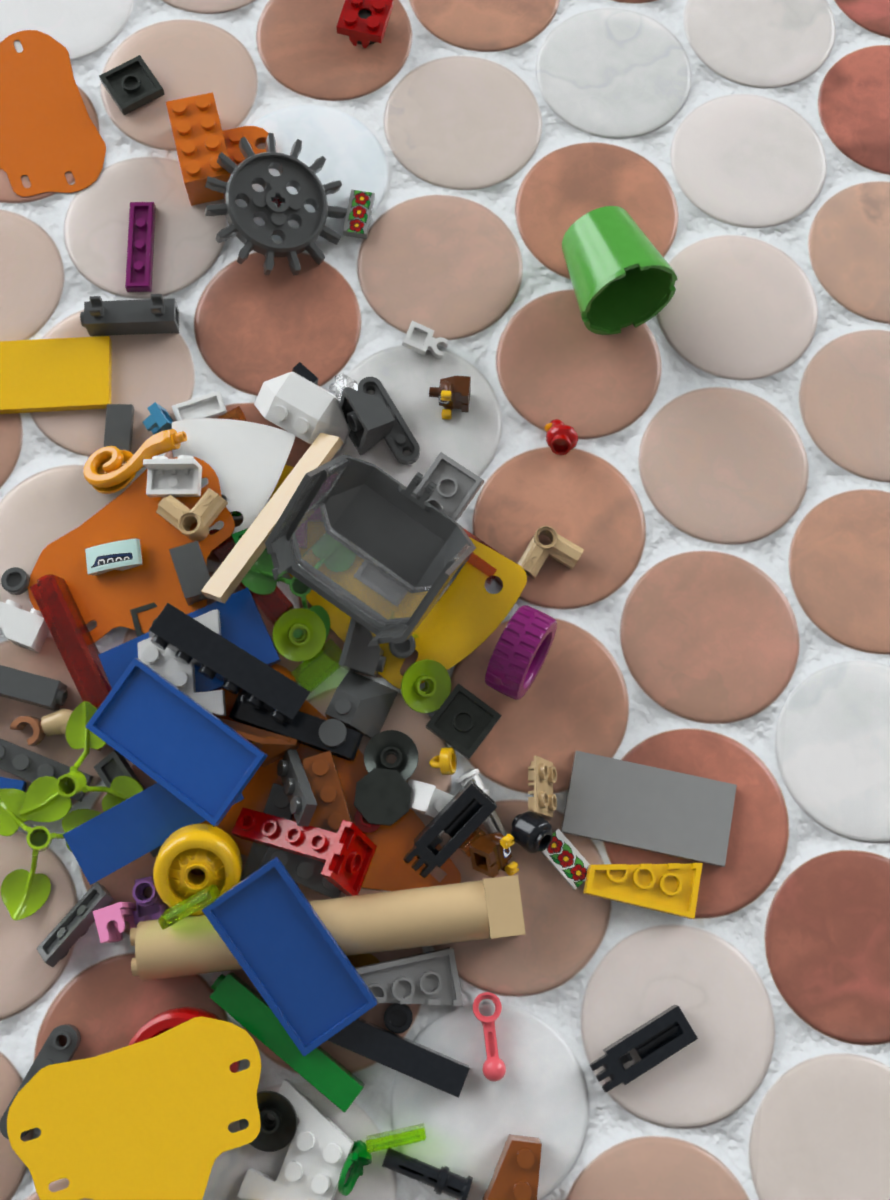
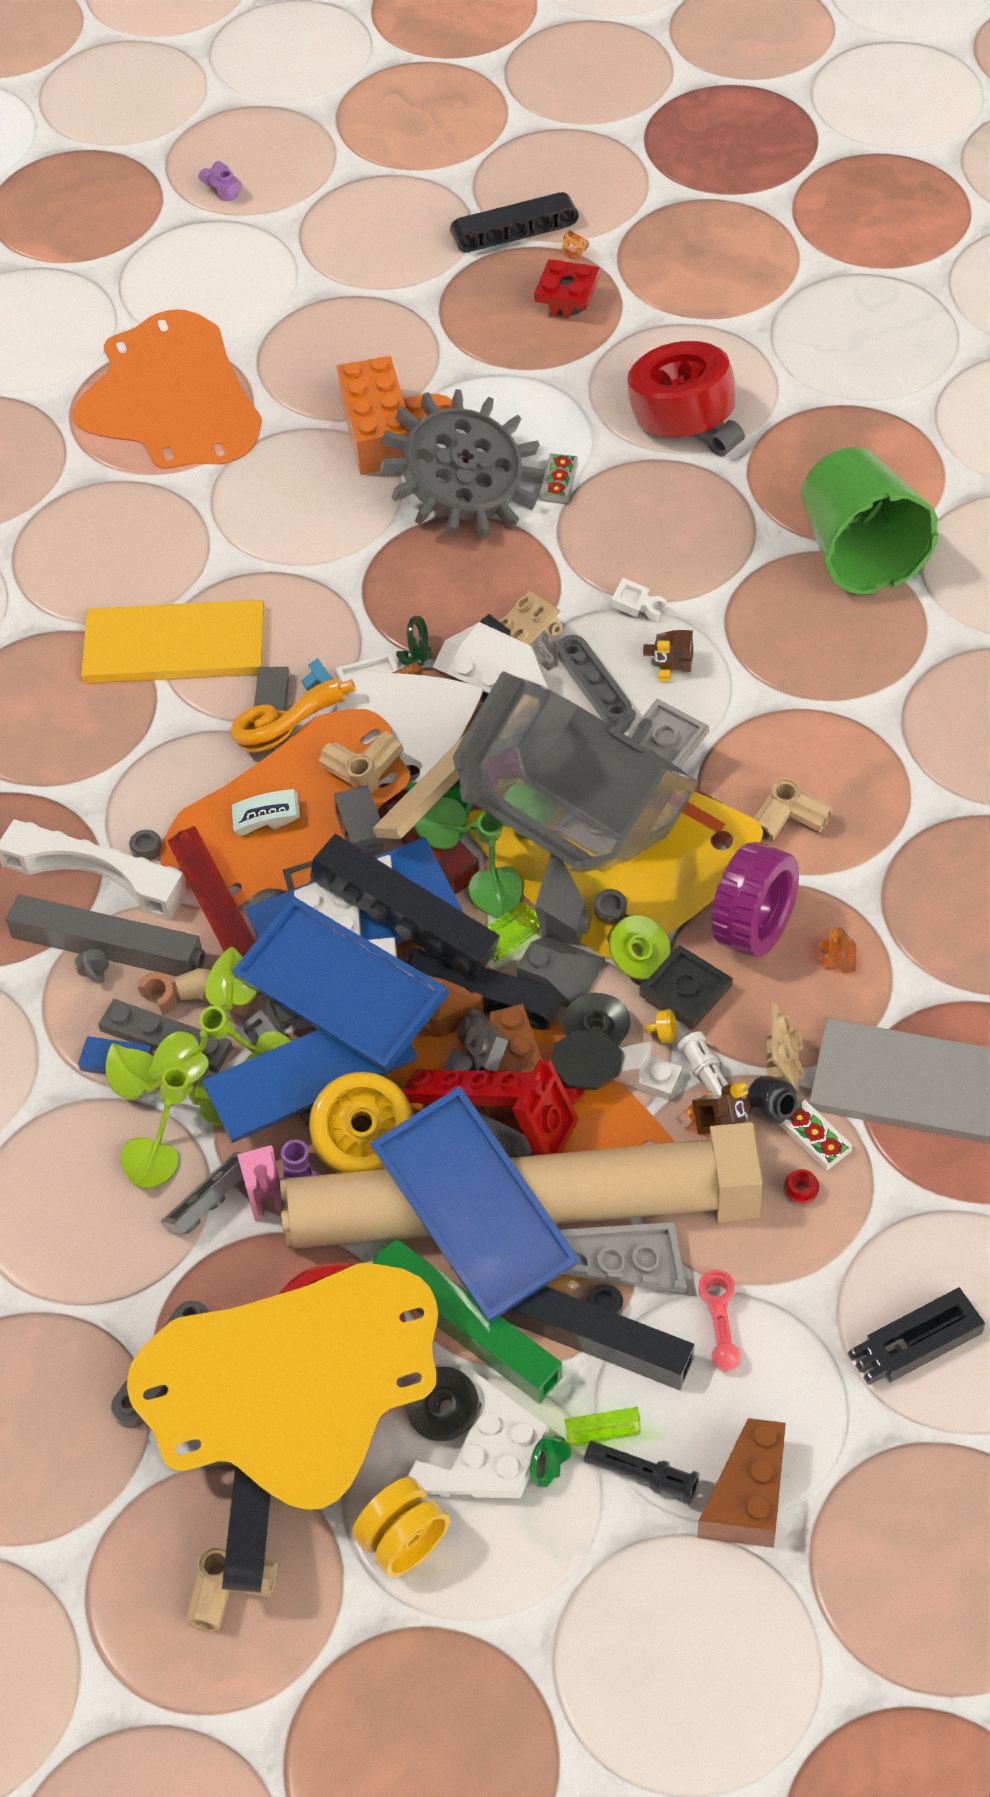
camera: 10 degrees right, 20 degrees down
(130, 316) = (289, 579): dark grey brick -> none
(131, 85) = (294, 357): pearl dark grey plate -> none
(140, 247) = (300, 514): magenta tile -> none
(173, 476) = (339, 721): white bracket -> none
(188, 906) = (350, 1148): clear neon green tile -> none
(242, 391) = (420, 652): none -> dark green piece
(306, 645) = (496, 879): lime dish -> none
(332, 733) = (526, 986): dark grey tile -> none
(334, 363) = (531, 617): none -> tan hinge
(367, 418) = (568, 667): dark grey slope -> none
(458, 820) = (677, 1084): black hinge -> none
(467, 145) = (681, 389): none -> red wheel
(494, 174) = (723, 437): none -> dark grey piece
(560, 437) = (804, 695): red animal -> none
(563, 908) = (804, 1178): none -> red plate
(589, 687) = (840, 951): none -> clear orange tile
(657, 887) = (934, 1164): yellow wing -> none

